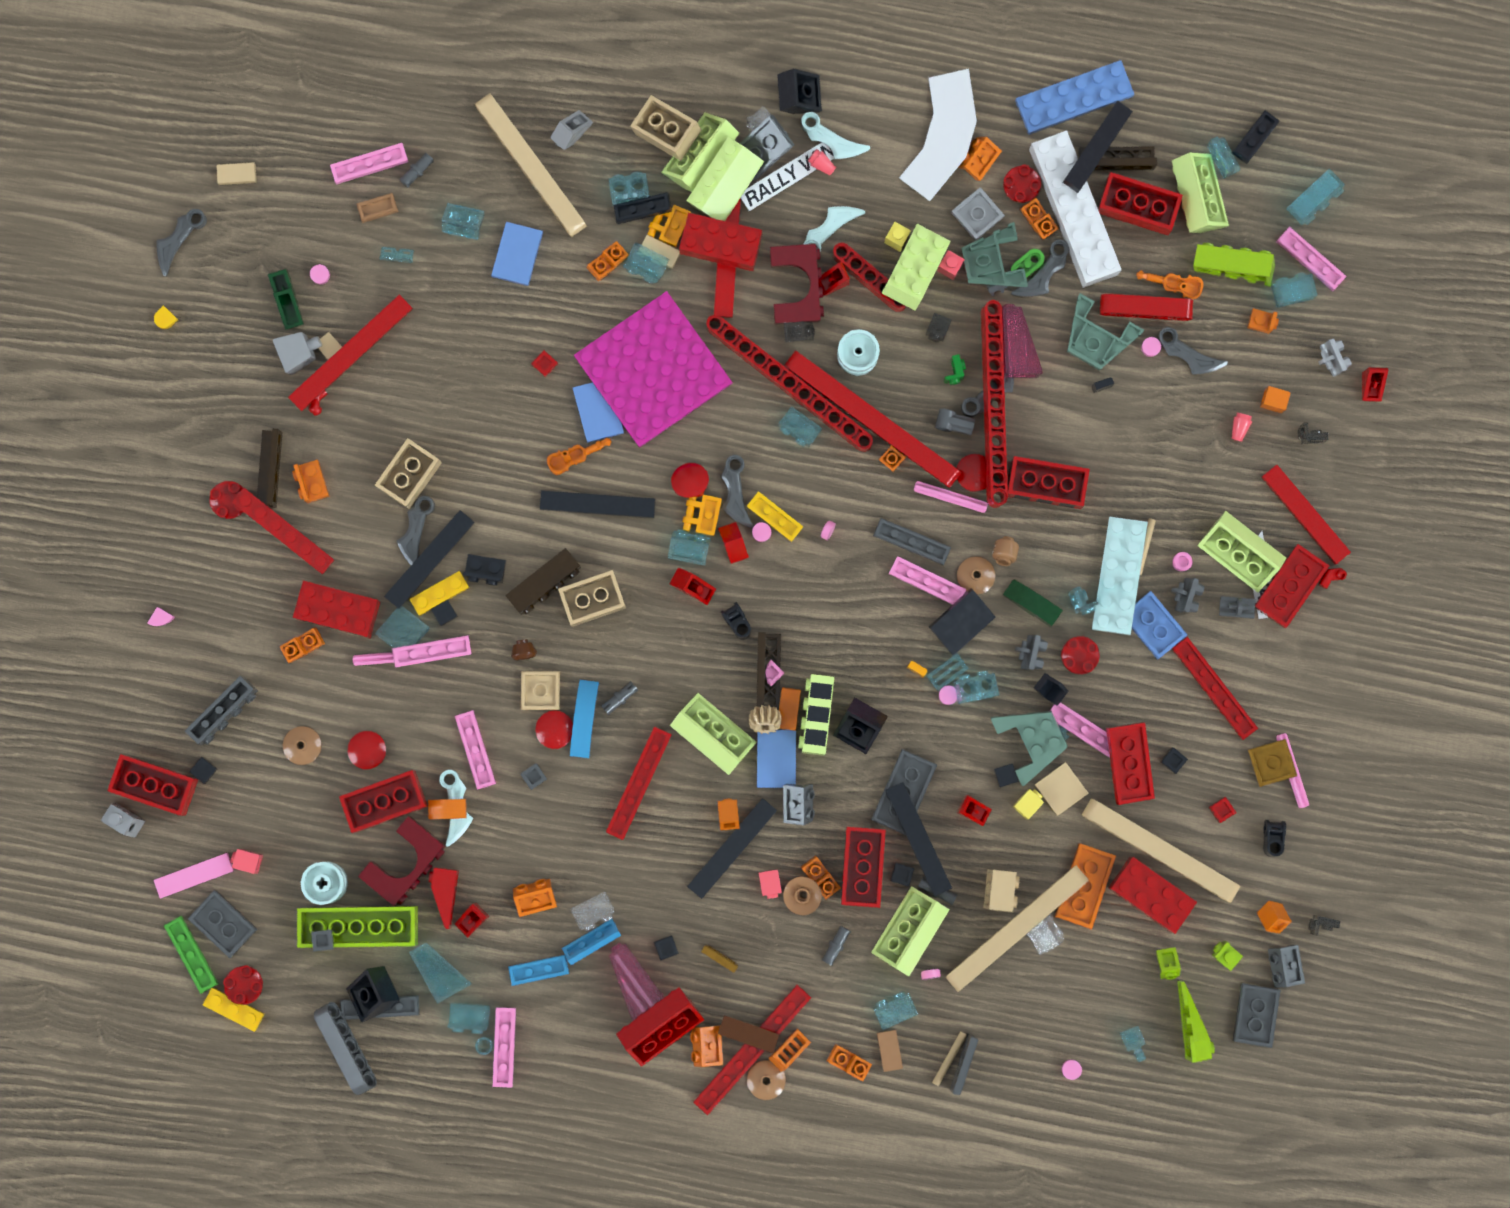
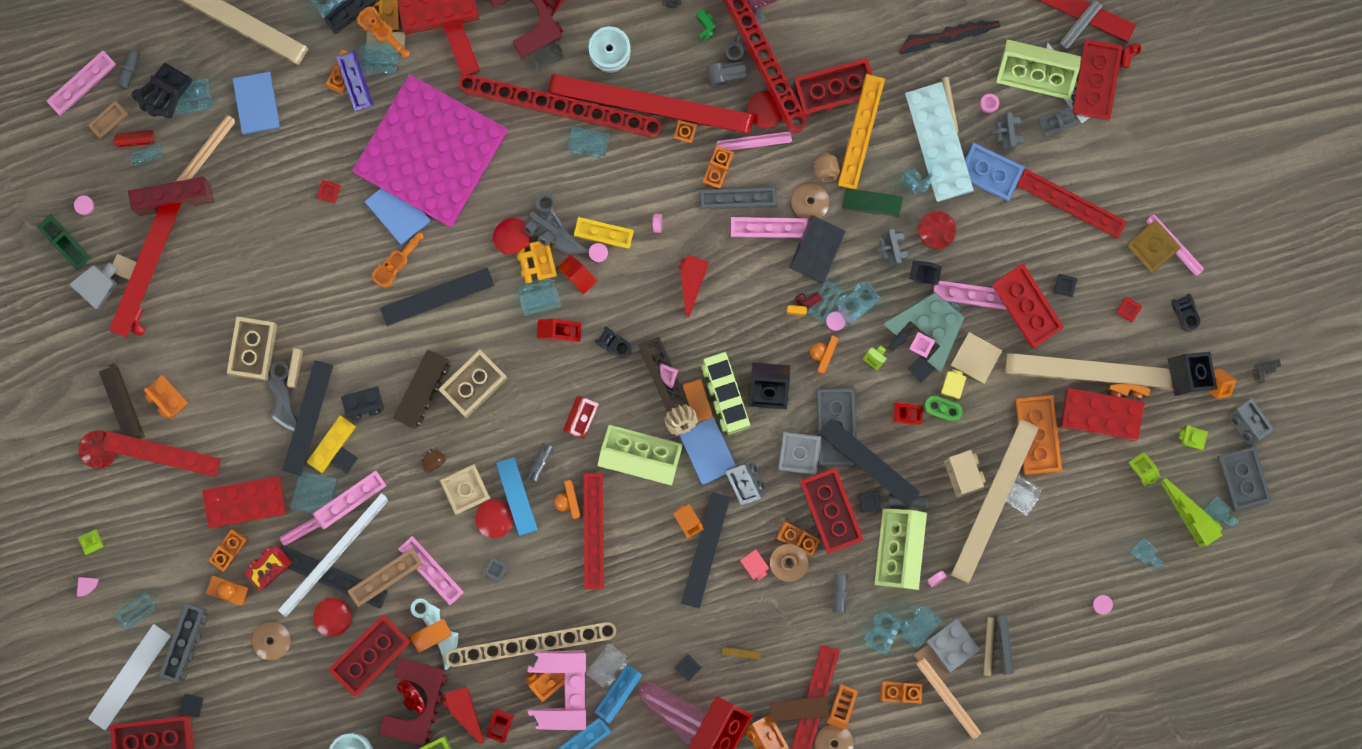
camera: 25 degrees left, 0 degrees up
(160, 718) = (129, 677): none -> white sticker
(183, 580) = (91, 542): none -> lime tile
(210, 658) = (140, 617): none -> clear light blue tile
(284, 681) = (227, 590): none -> orange tile
(329, 678) = (268, 567): none -> red brick
(377, 295) = (147, 199): none -> dark red arch
(383, 713) = (333, 577): none -> black tile
(392, 235) = (134, 138): none -> red slope
(393, 695) = (333, 555): none -> white tile
(403, 857) = (412, 697): none -> red dish
(430, 737) = (385, 577): none -> medium nougat plate
(438, 509) = (294, 368): none -> tan tile
(446, 195) = (168, 80): none -> black plate
(447, 278) = (207, 149): none -> light nougat axle
(524, 855) = (521, 641): none -> tan beam
(562, 898) = (573, 666): none -> bright pink wedge
(614, 274) = (354, 80): none -> tile
(628, 745) = (568, 500): none -> orange tile
(654, 226) = (371, 20): none -> orange piece
(675, 674) = (580, 417): none -> red slope
(723, 484) = (544, 226): none -> dark grey hips
(836, 594) = (692, 276): none -> red slope
(859, 800) = (800, 453): none -> light grey tile
(862, 1005) = (887, 634): none -> clear light blue brick
(890, 1090) = (948, 698): none -> light nougat axle
(906, 505) = (718, 167): none -> orange slope
(916, 1042) = (952, 645): none -> light grey plate
(921, 717) = (822, 353): none -> orange tile
(932, 666) = (810, 301): none -> dark red arm
(968, 745) = (875, 357): none -> lime tile
(996, 740) = (898, 341): none -> black tile
(1009, 821) = (943, 408): none -> bright green plate
(1017, 753) = (922, 344): none -> bright pink panel
(1052, 533) = (861, 131): none -> light orange tile
(1174, 482) = (923, 41): none -> black sword
(1182, 882) = (1122, 390): none -> orange slope
(1219, 1034) = (1219, 511): none -> clear light blue plate
(1253, 897) = (1192, 373): none -> black brick
(1300, 528) = (1079, 26): none -> light grey axle

